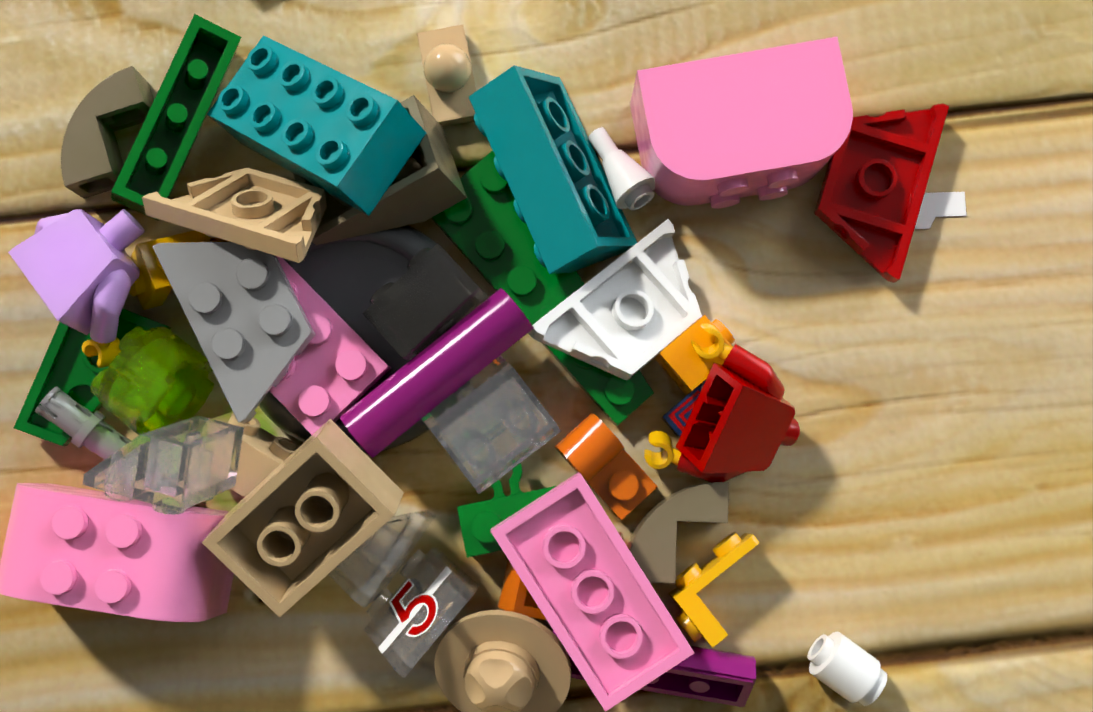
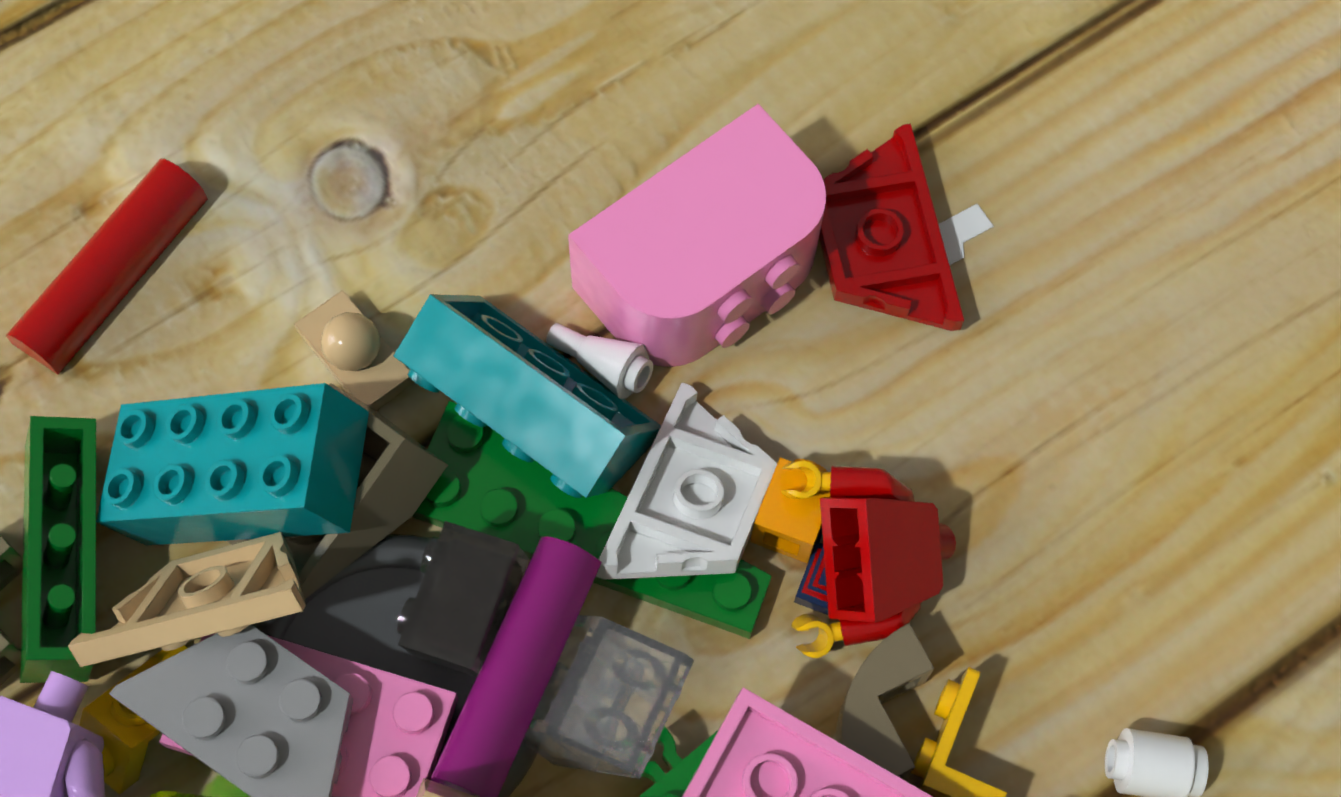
camera: 30 degrees left, 15 degrees down
(606, 466) = (748, 662): orange plate -> none

